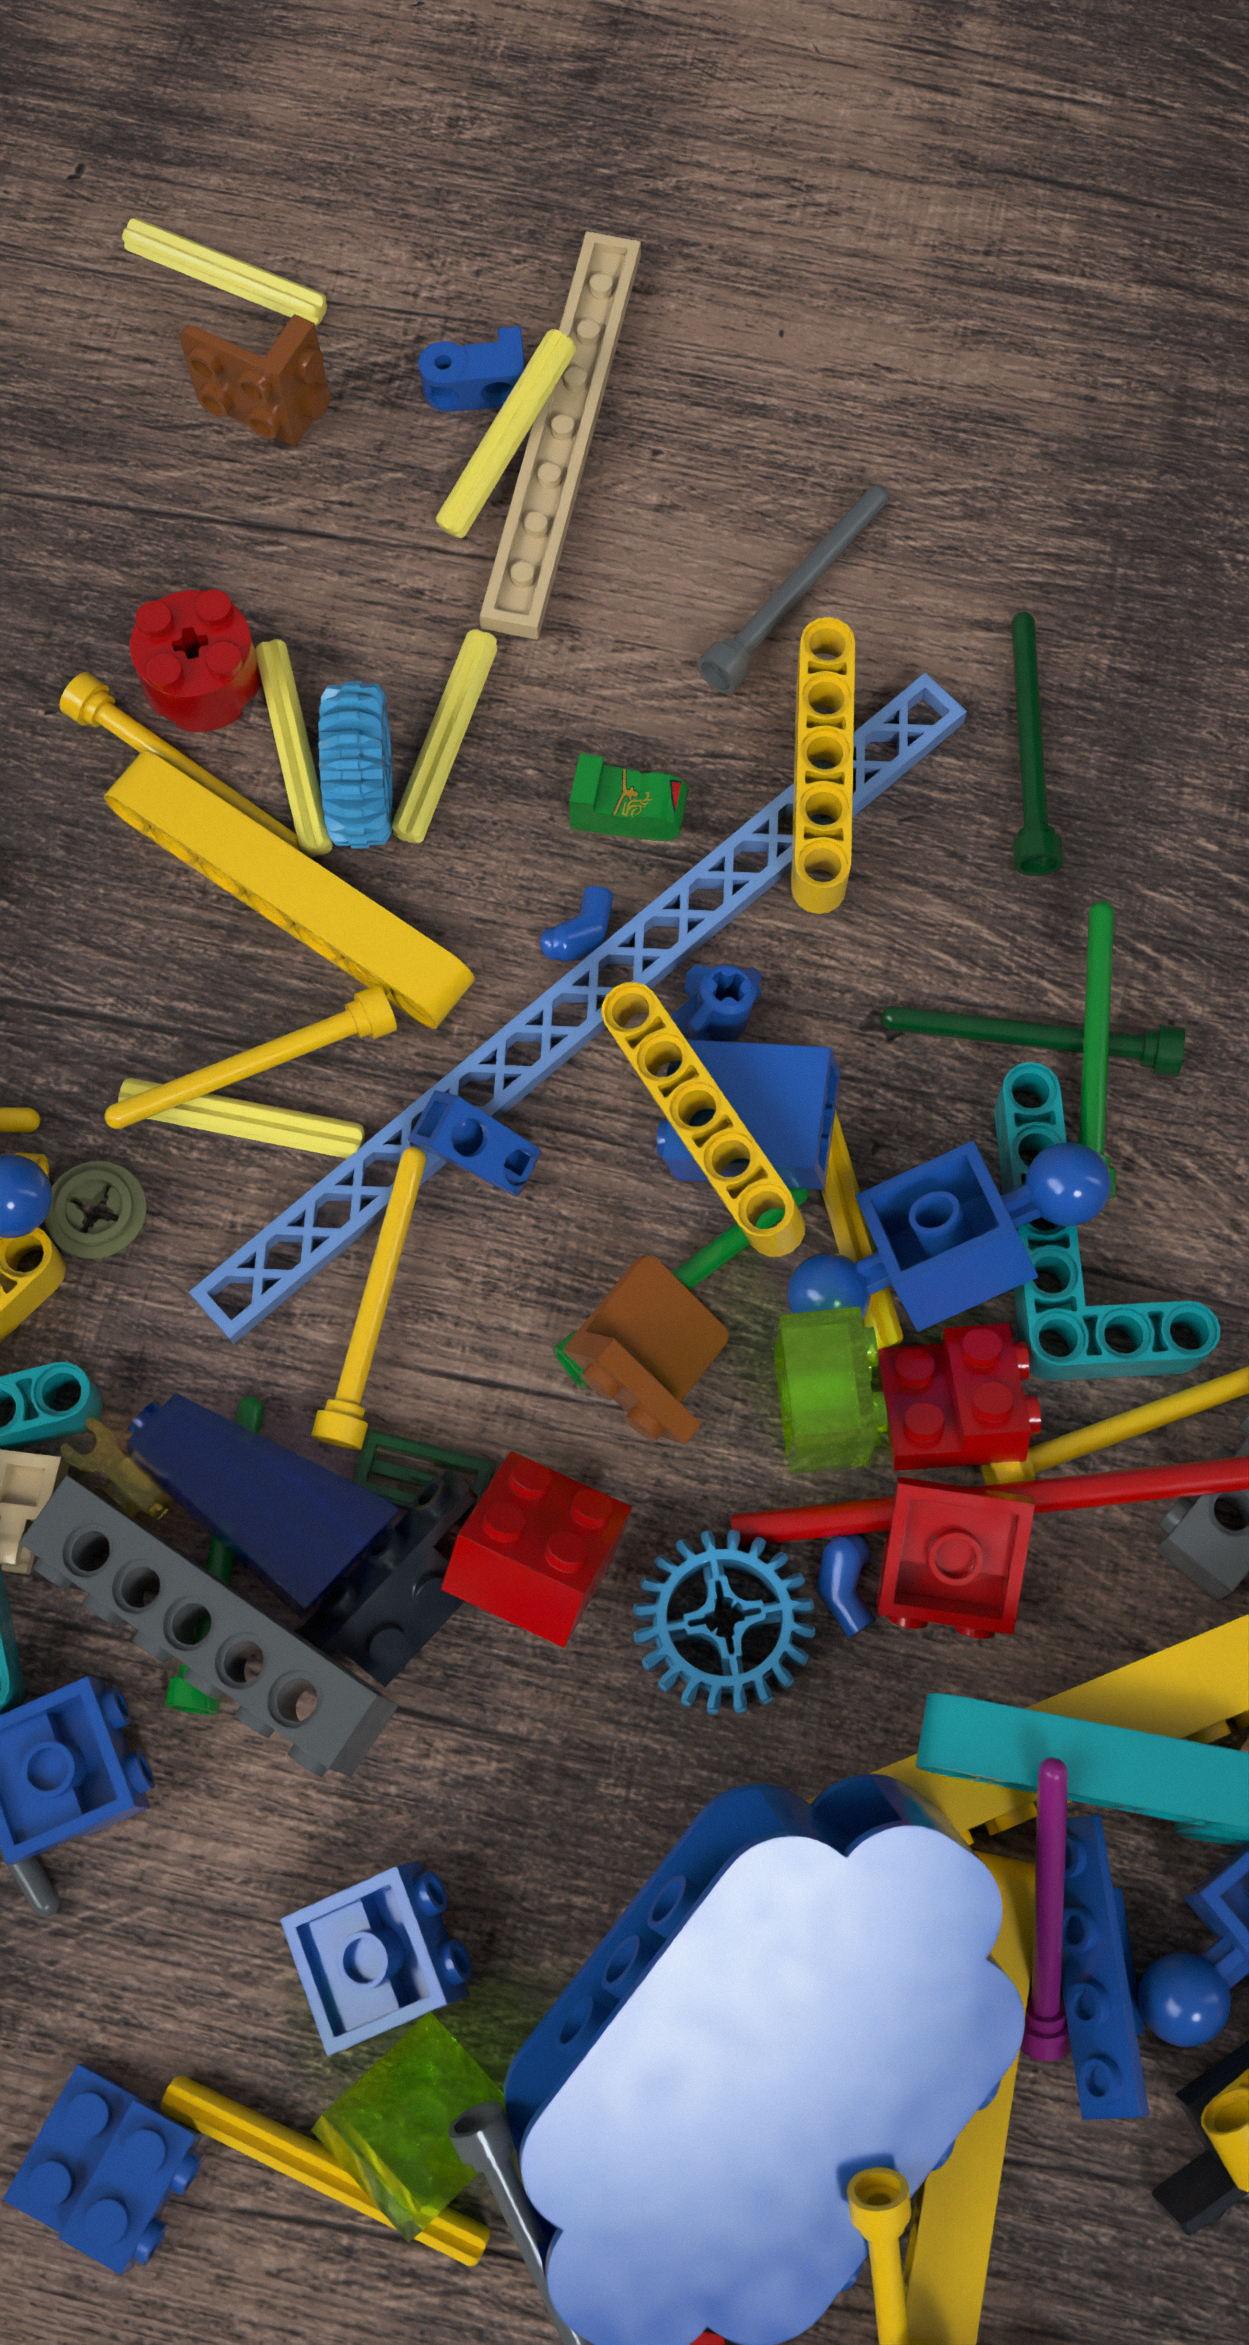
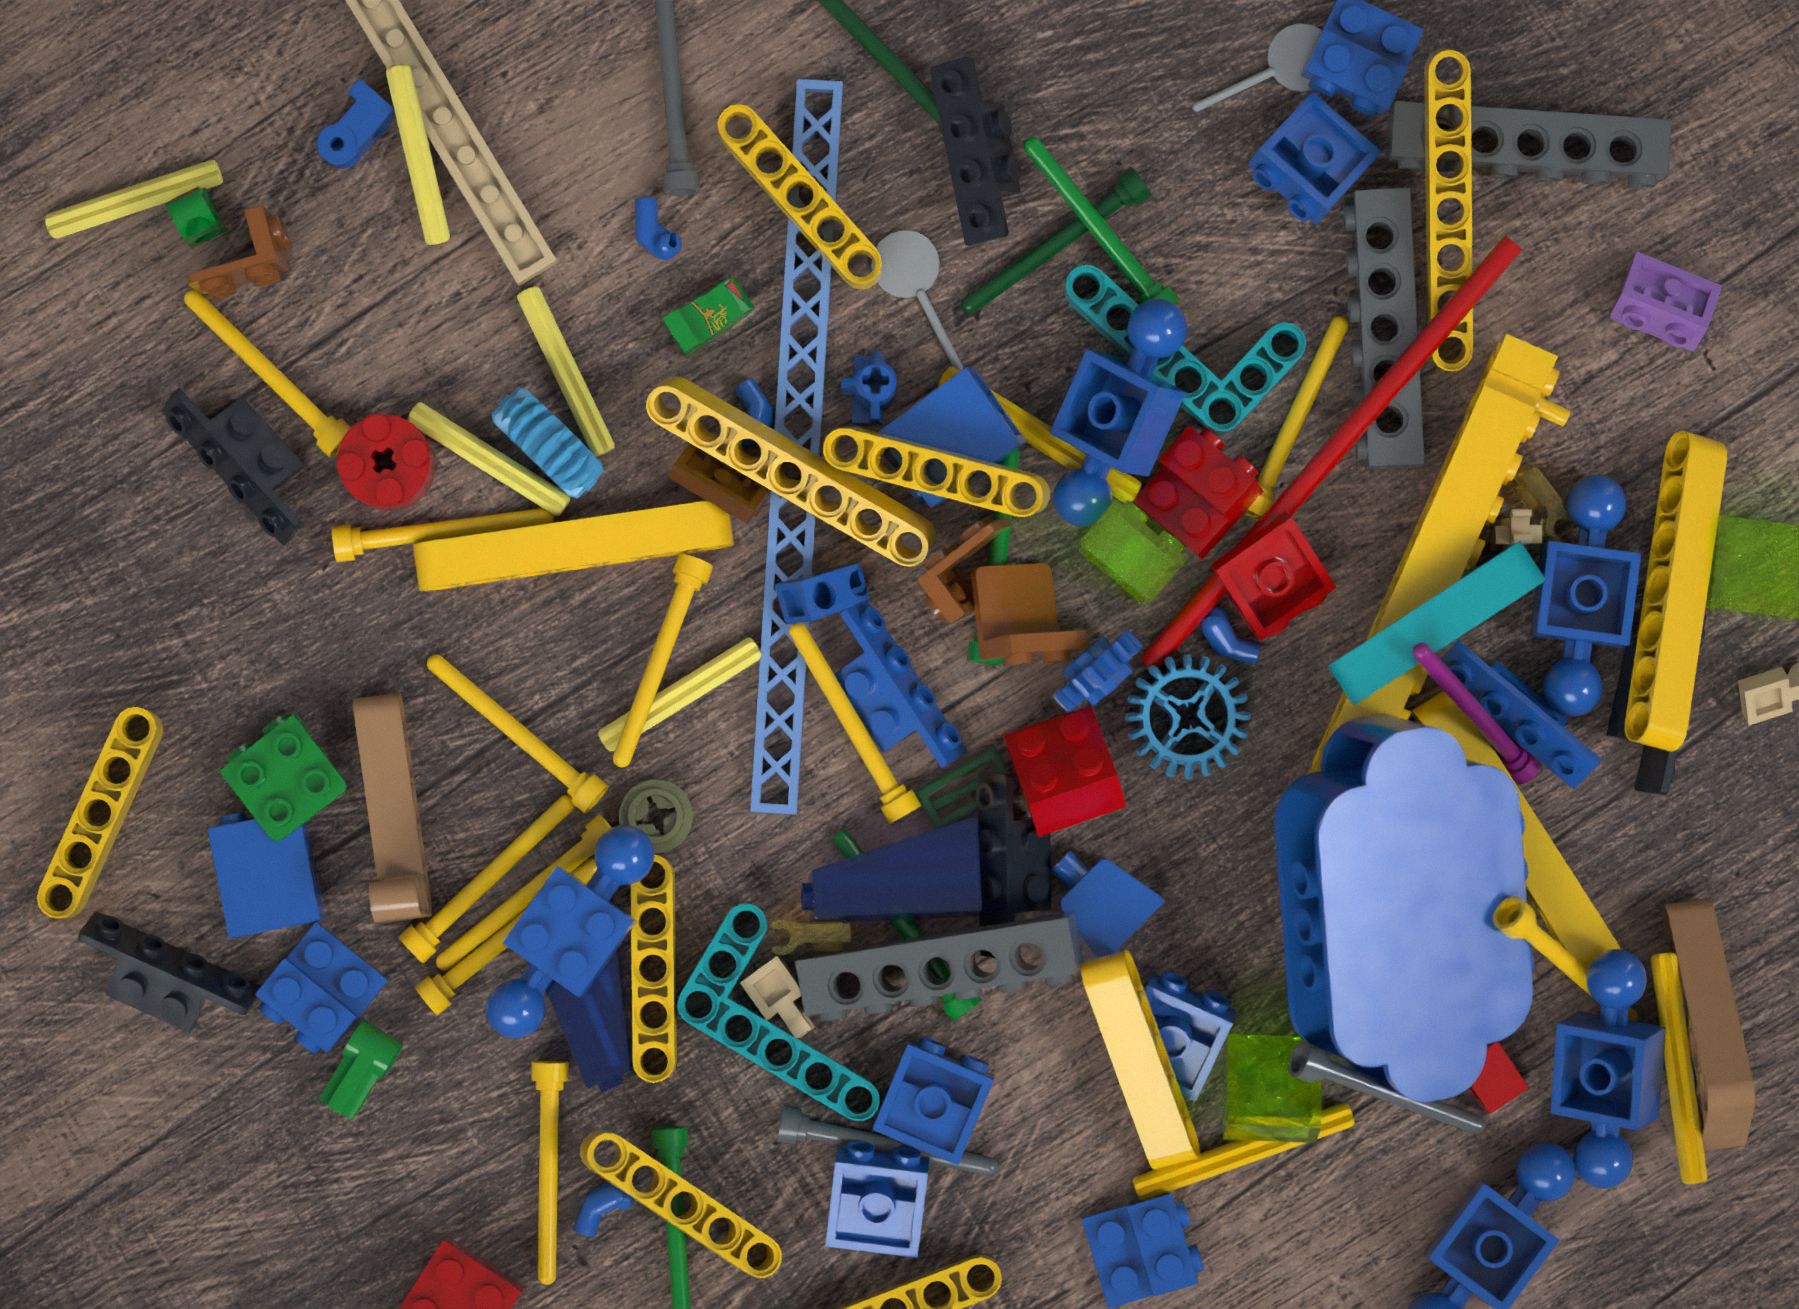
camera: 40 degrees left, 15 degrees up
(56, 1120) = (583, 788): none -> yellow piece
(84, 550) = (244, 455): none -> black bracket
(181, 492) = (327, 431): none -> yellow piece
(253, 306) = (196, 217): none -> green leg
(307, 1945) = (1140, 1059): none -> yellow beam
(442, 1735) = (1105, 902): none -> blue torso
(445, 1308) = (889, 691): none -> blue bracket
(485, 948) = (719, 483): none -> reddish brown bracket
(574, 1022) = (768, 471): none -> yellow beam
(617, 1225) = (947, 589): none -> dark orange bracket
(649, 689) = (651, 234): none -> blue arm
(673, 1476) = (1097, 670): none -> blue gear
(865, 935) = (908, 271): none -> light grey piece
(1040, 875) = (976, 149): none -> black bracket

